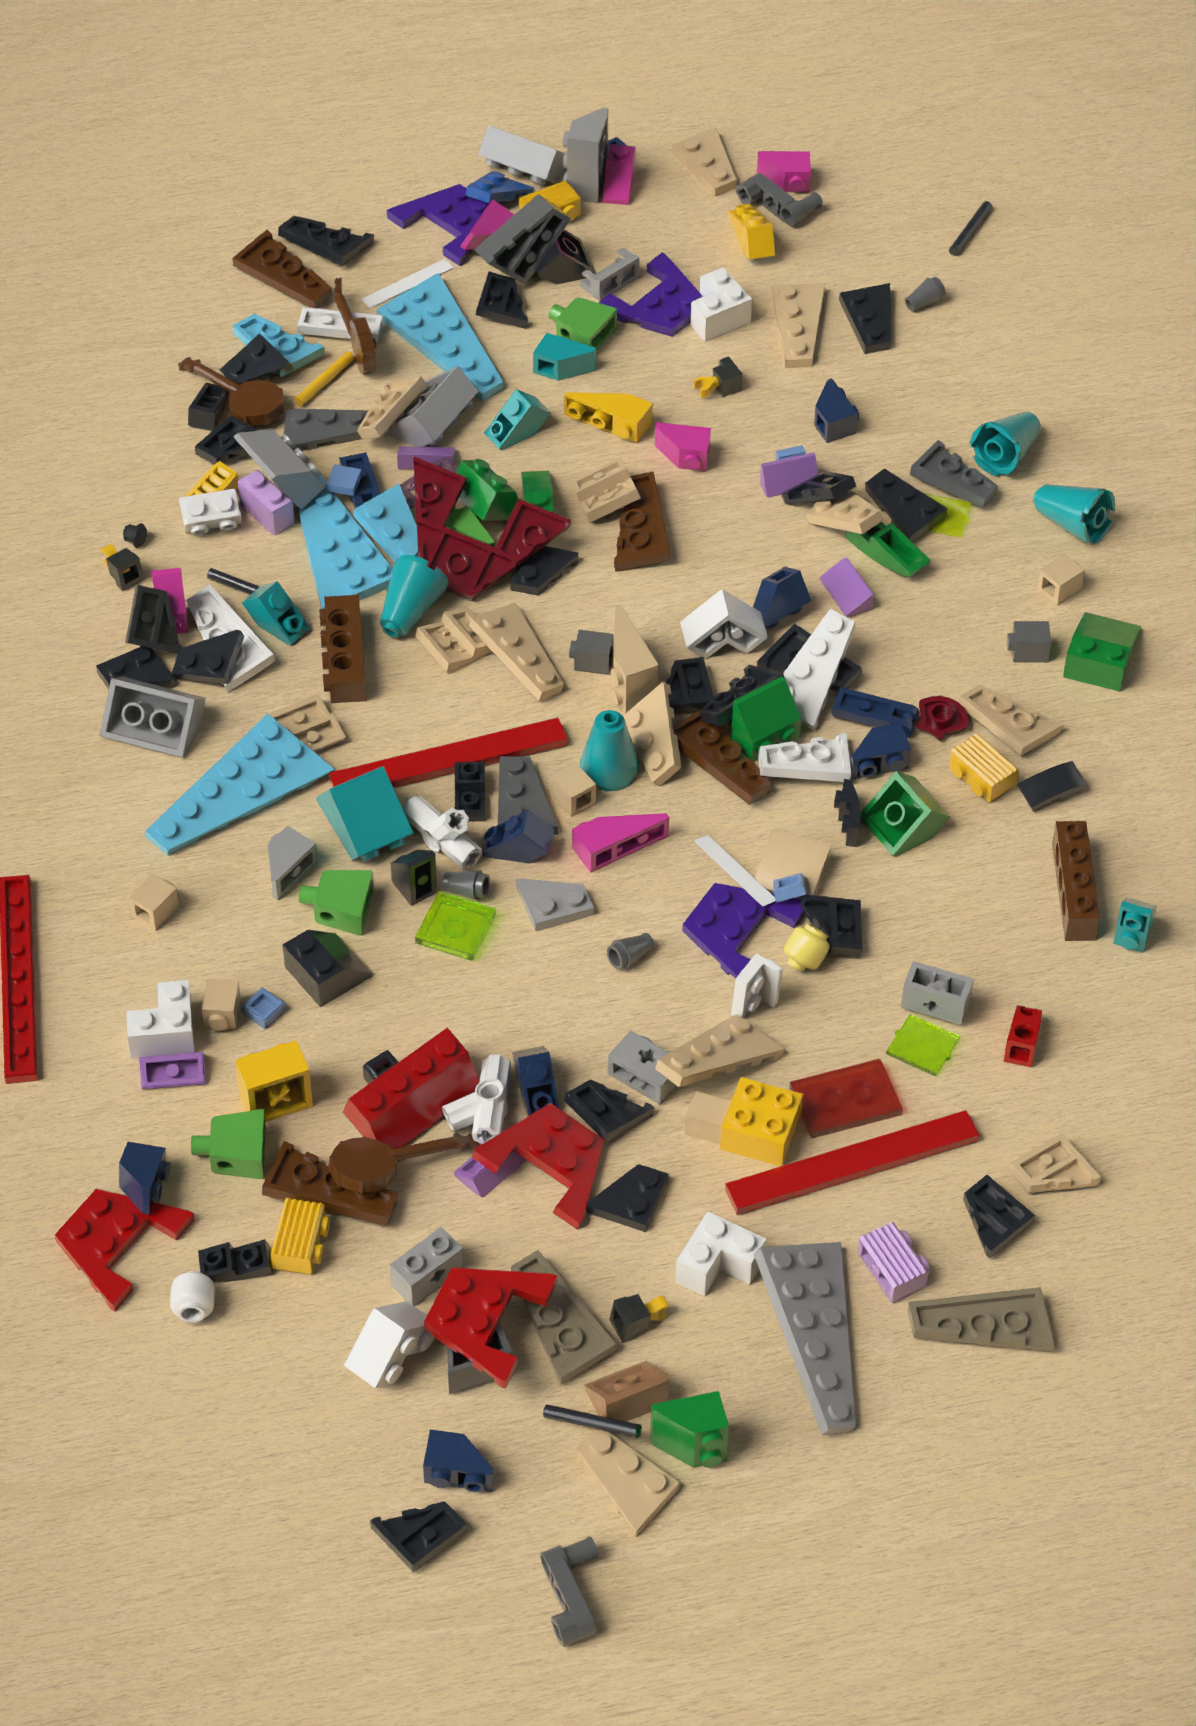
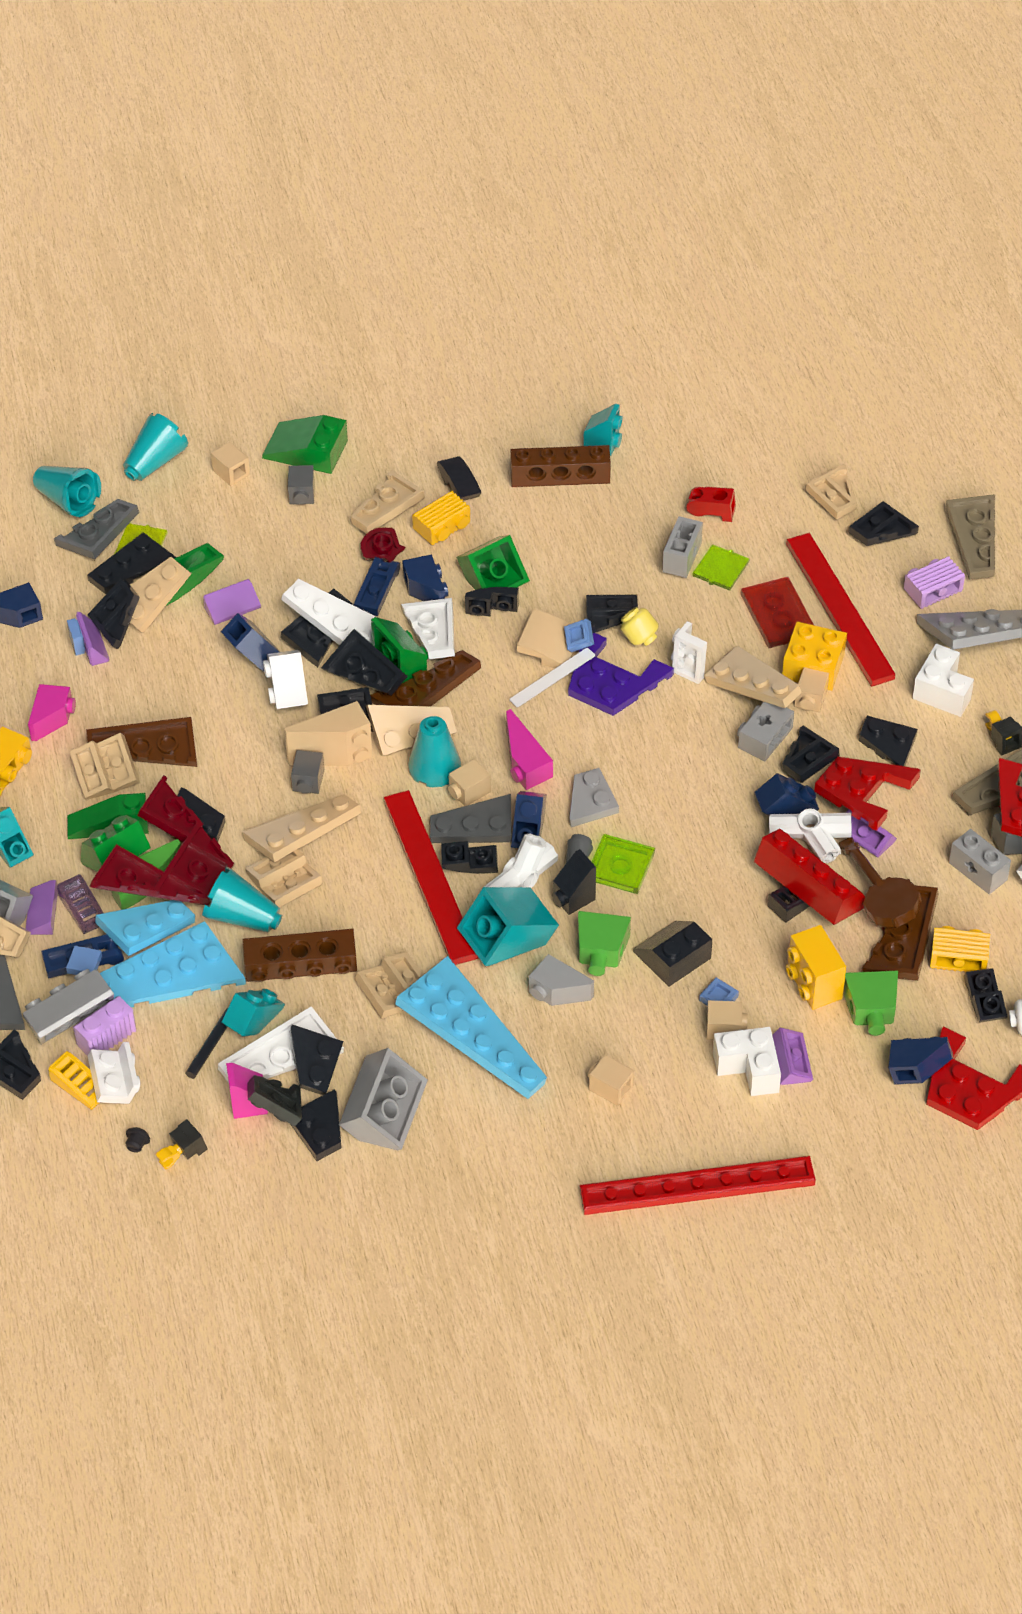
camera: 90 degrees left, 0 degrees up
(626, 951) = (644, 743): dark grey cone -> none

